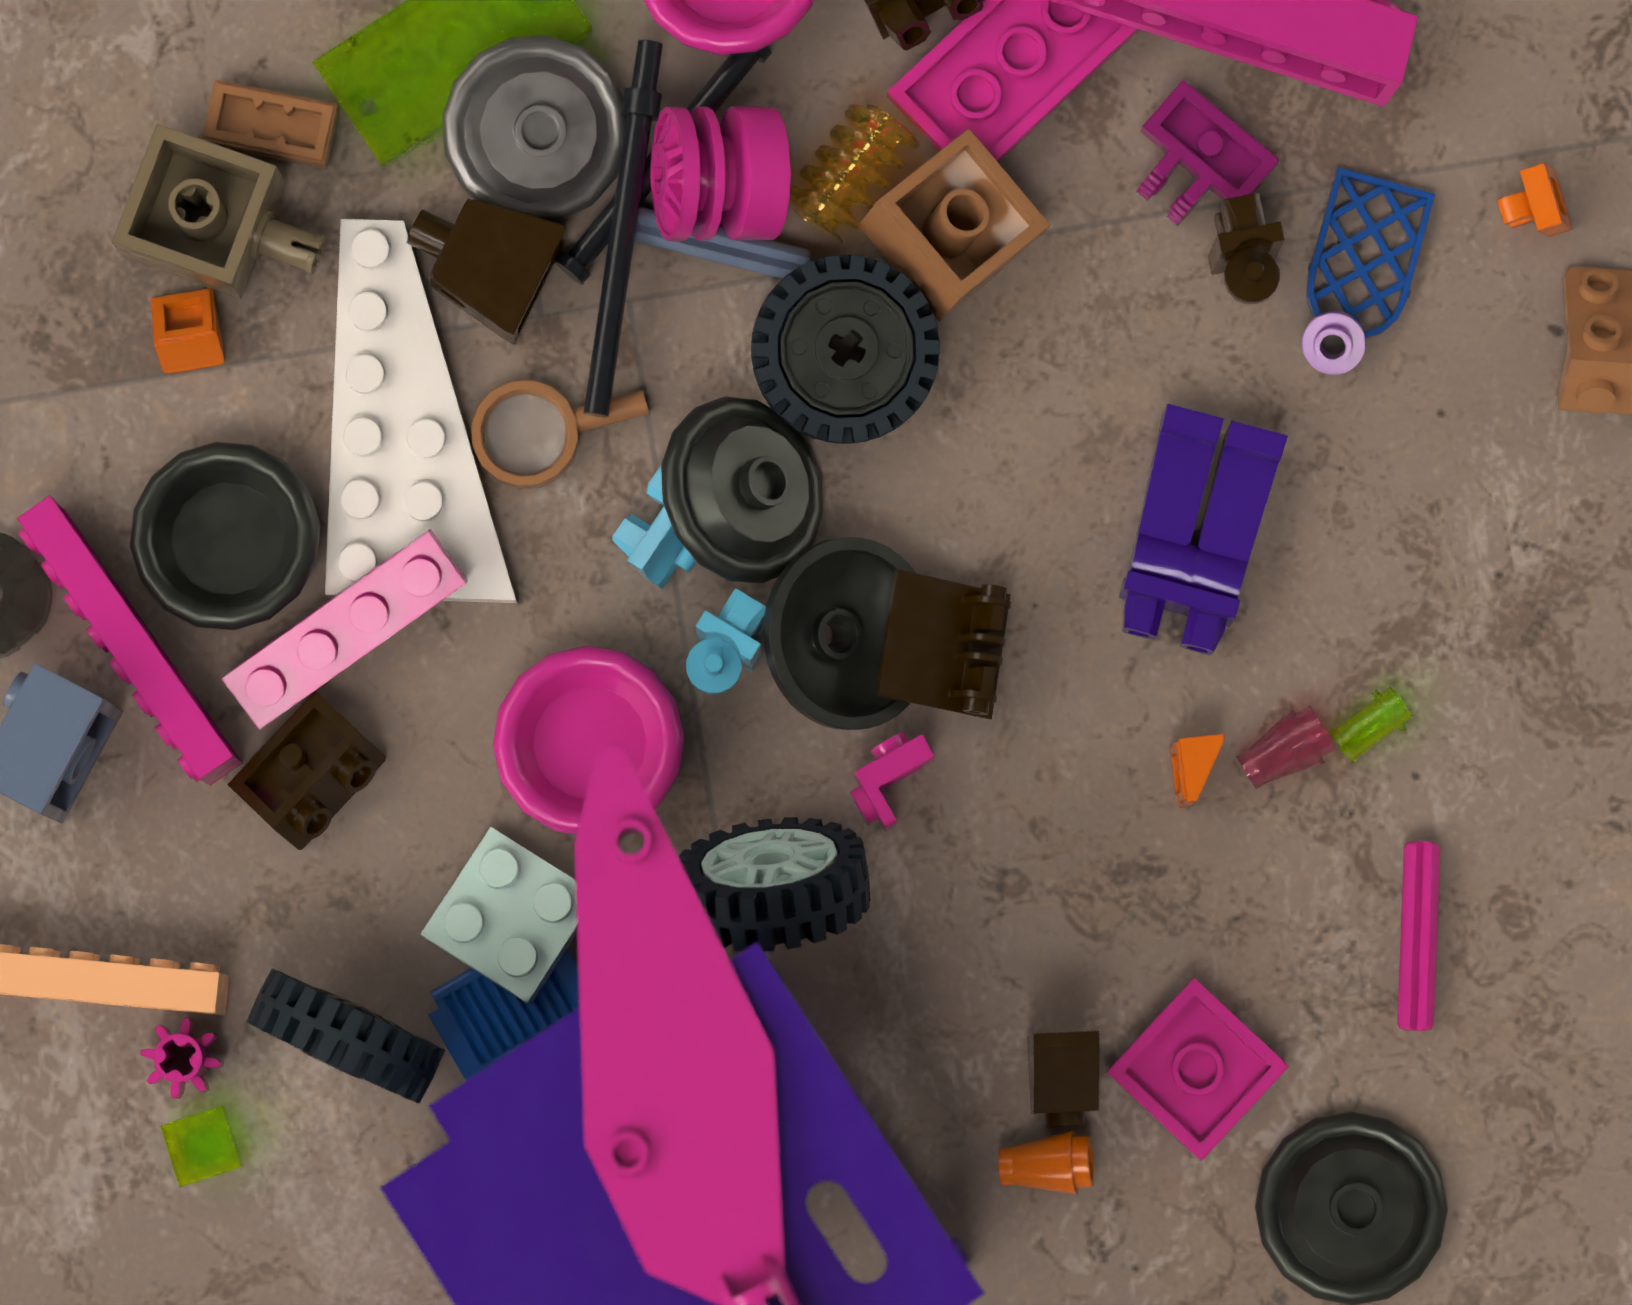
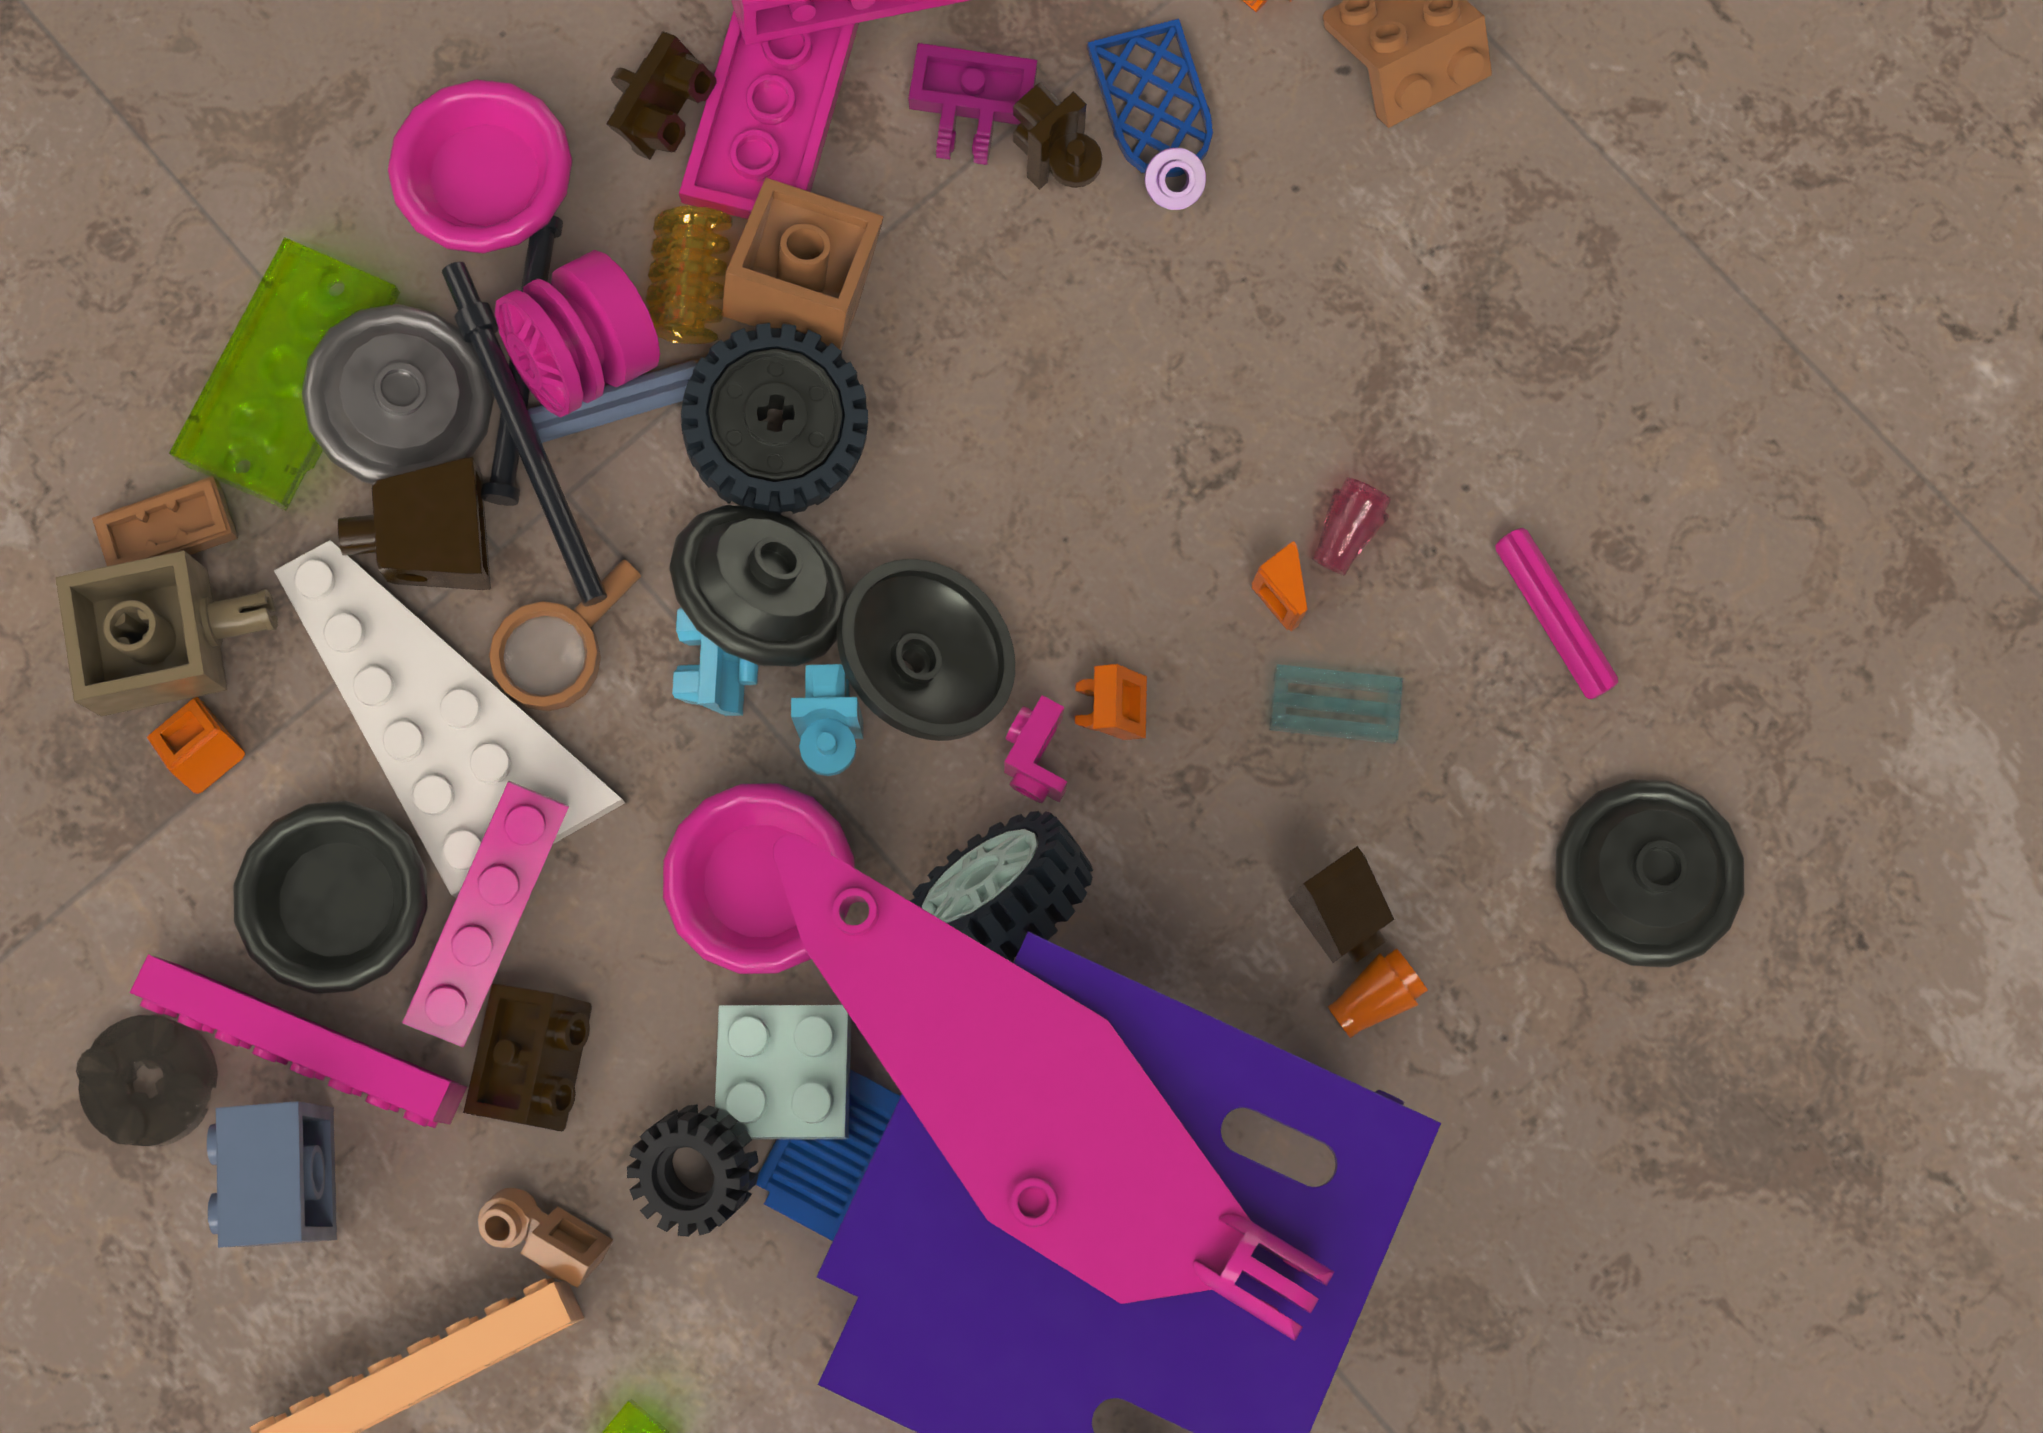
camera: 35 degrees left, 5 degrees down
(164, 1055) = (549, 1388): dark pink gear -> none
(239, 938) = (556, 1242): none -> medium nougat plate
(345, 1036) = (700, 1266): black wheel -> none
(355, 958) = (665, 1190): none -> black tyre
(943, 644) = (1011, 611): dark brown hinge -> none
(986, 777) = (1118, 702): none -> orange tile
(1133, 862) = (1329, 727): none -> clear light blue tile
(1197, 1069) = (1449, 836): dark pink plate -> none
(1205, 576) = (1195, 423): dark purple hips -> none
(1371, 724) = (1405, 463): clear neon green pin -> none

